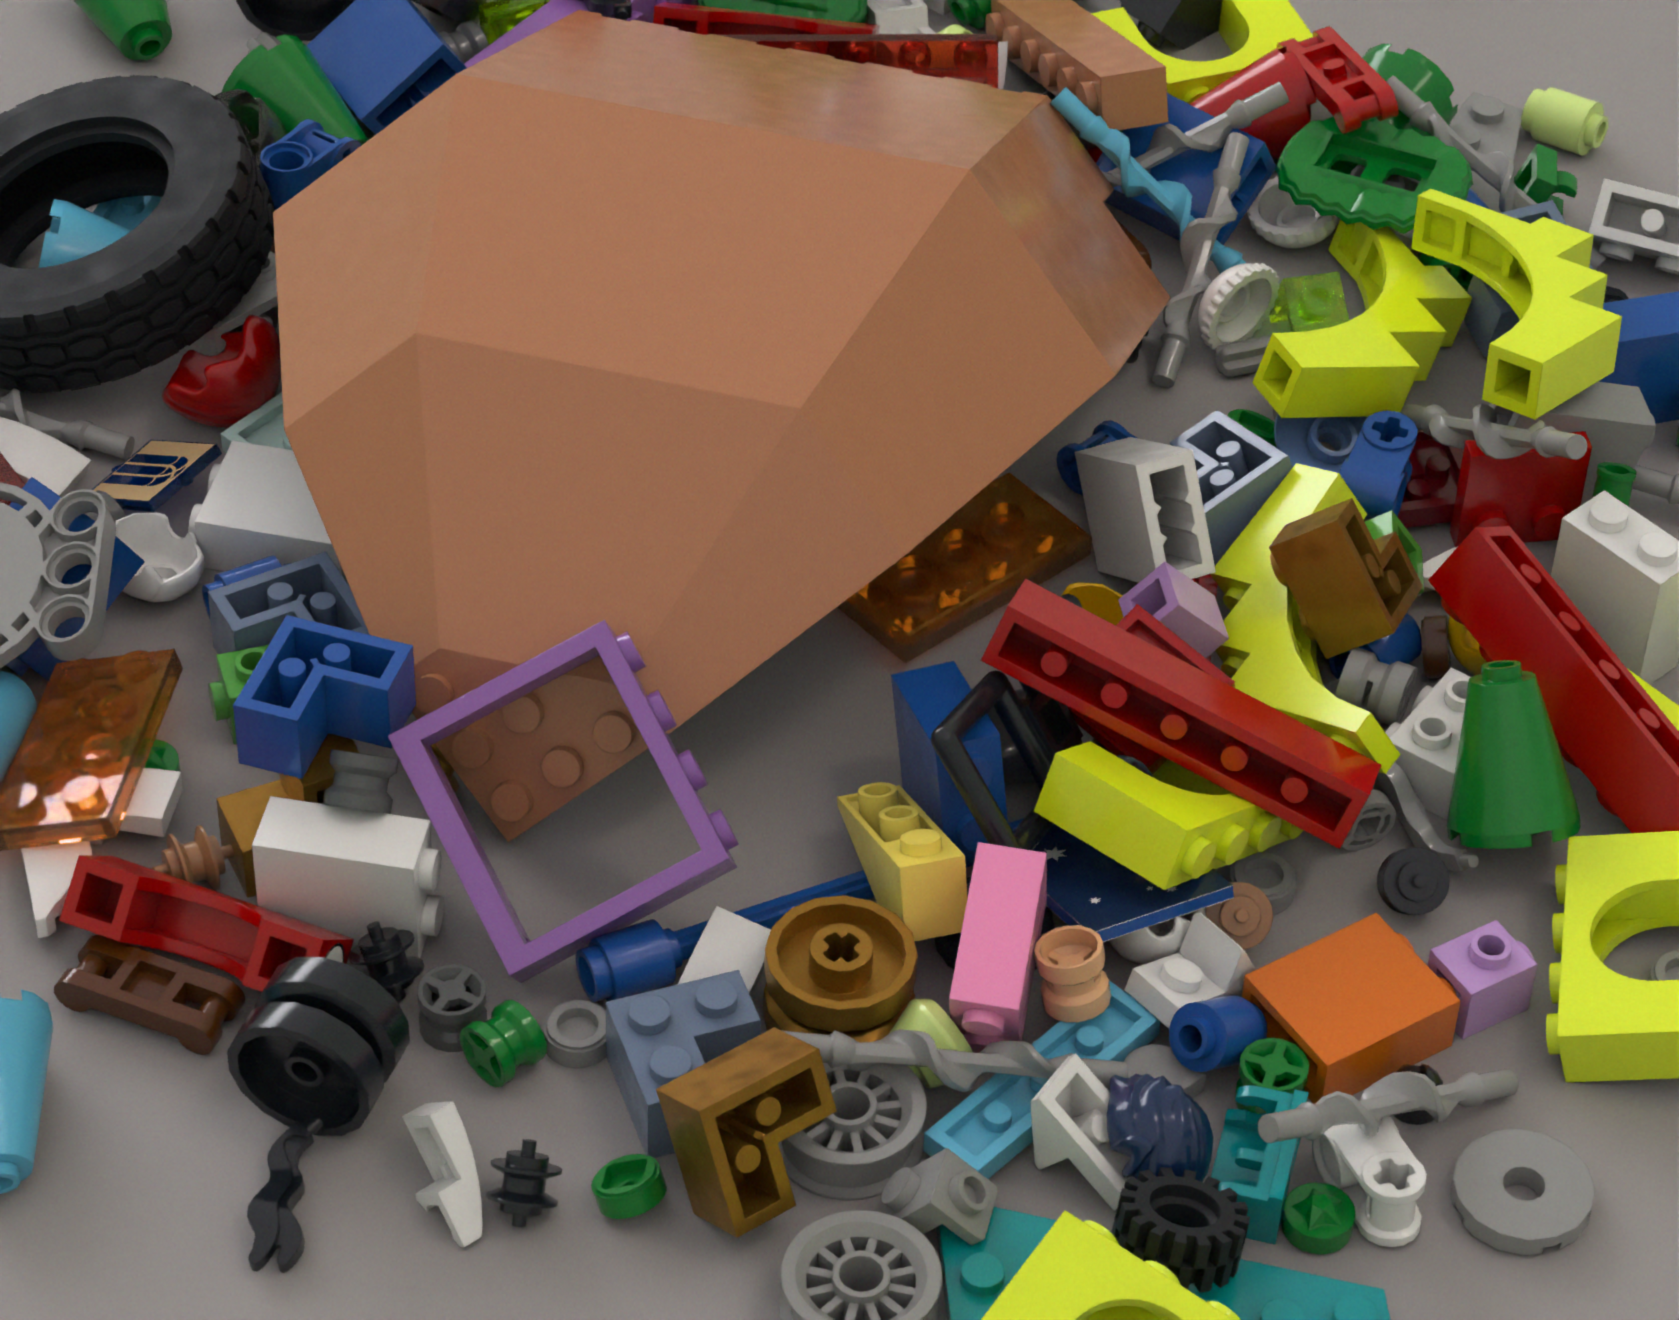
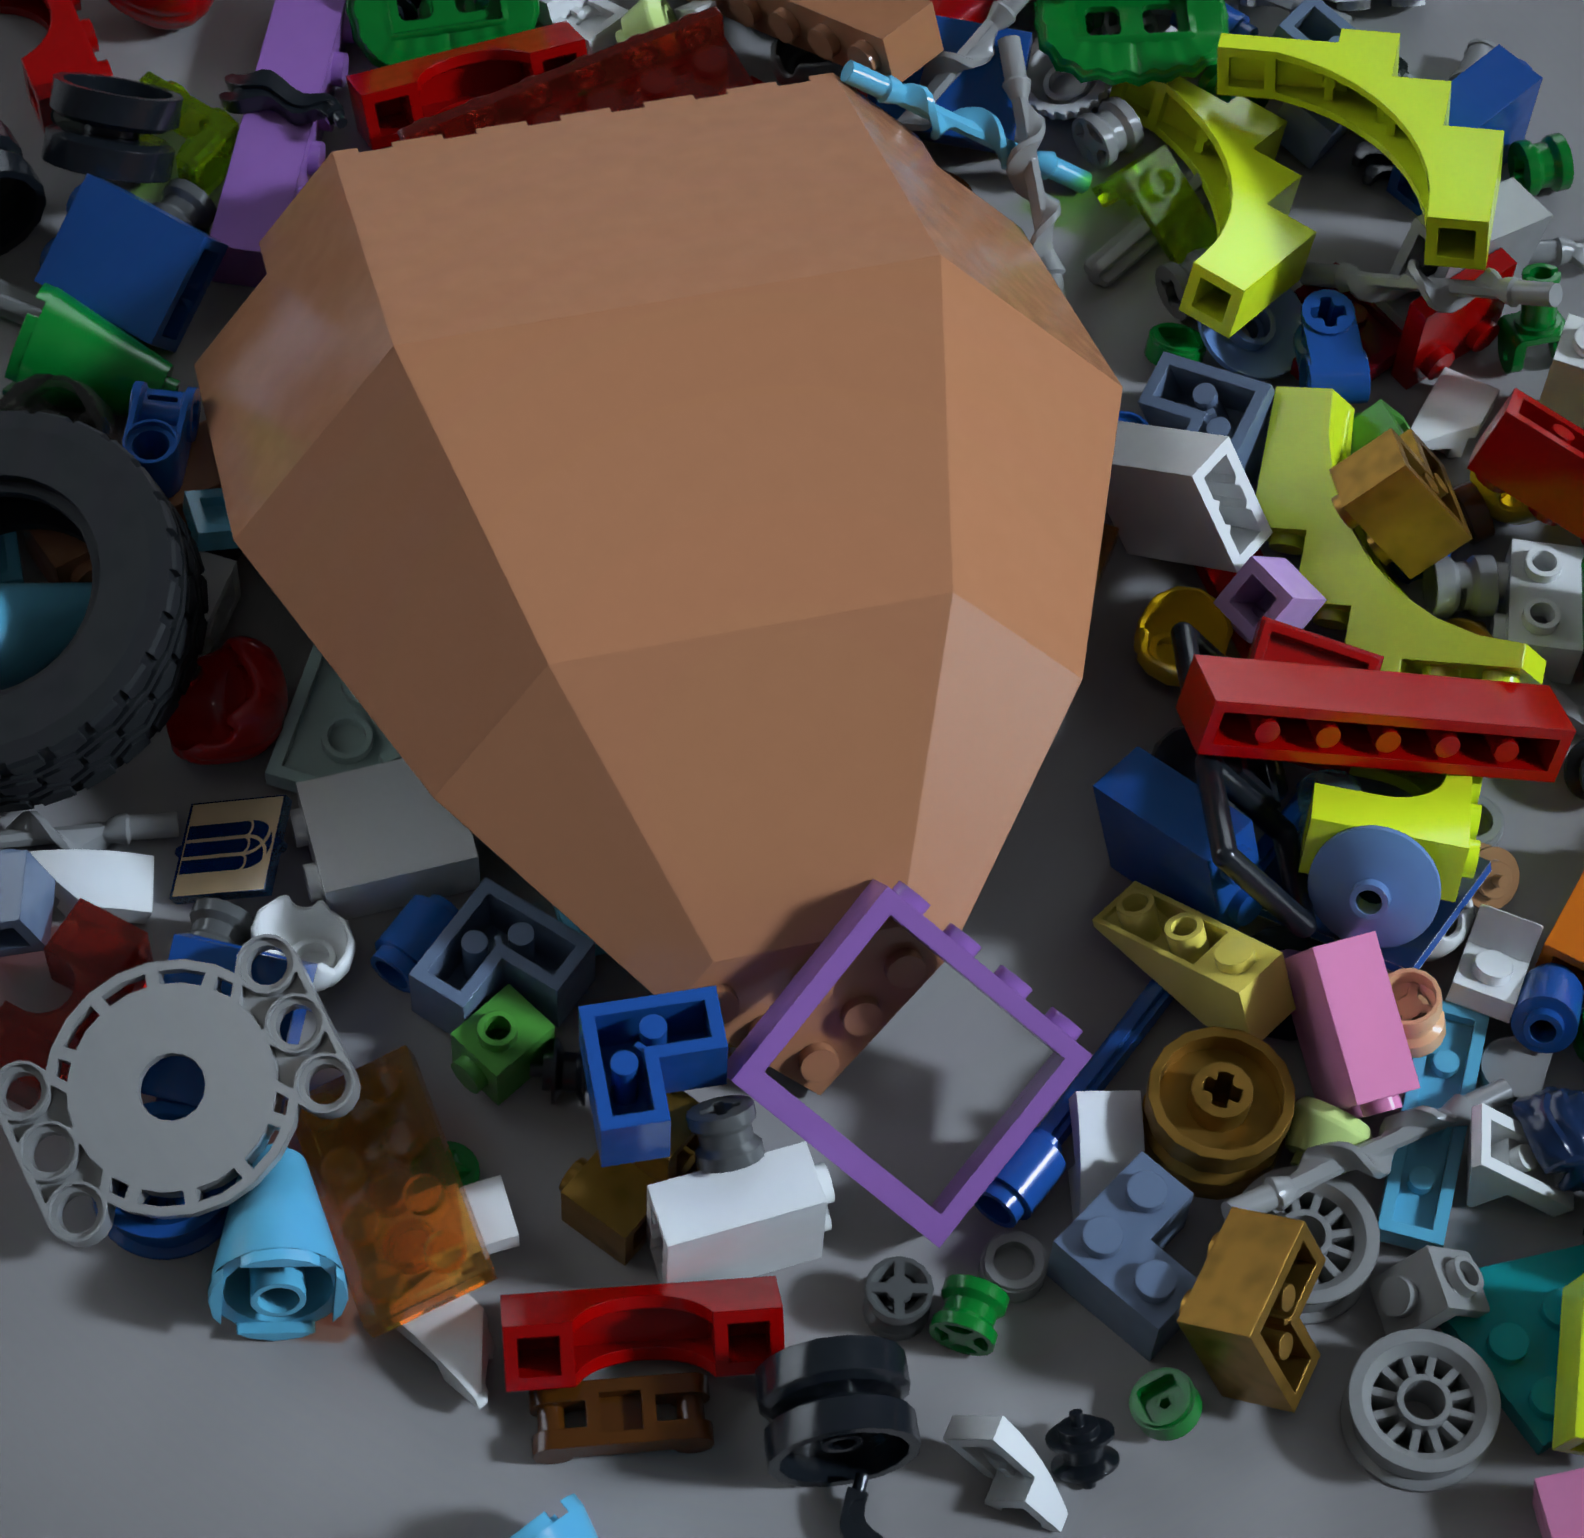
camera: 30 degrees left, 15 degrees up
(196, 859) = (568, 1259): medium nougat wheel -> none
(386, 959) = (814, 1282): black wheel -> none
(1110, 836) = (1378, 862): none -> medium blue dish
(1237, 303) = (1084, 213): white hat -> none
(1306, 256) = (1107, 132): none -> light grey wheel

